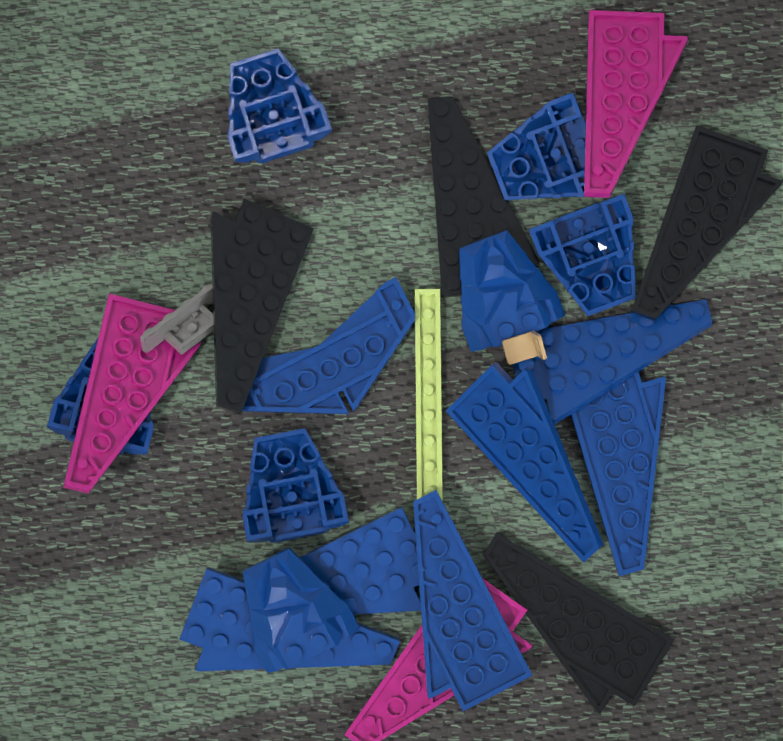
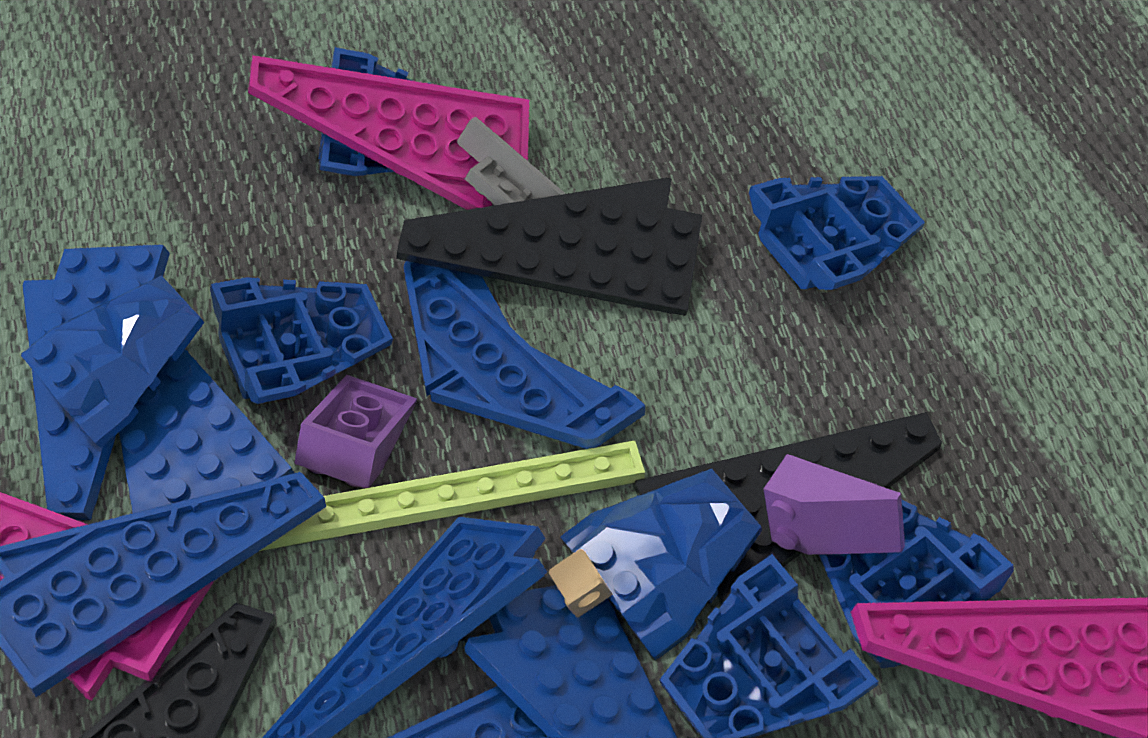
camera: 70 degrees right, 30 degrees down
(368, 463) = (353, 431): none -> medium lavender slope
(510, 191) = (831, 511): none -> medium lavender slope

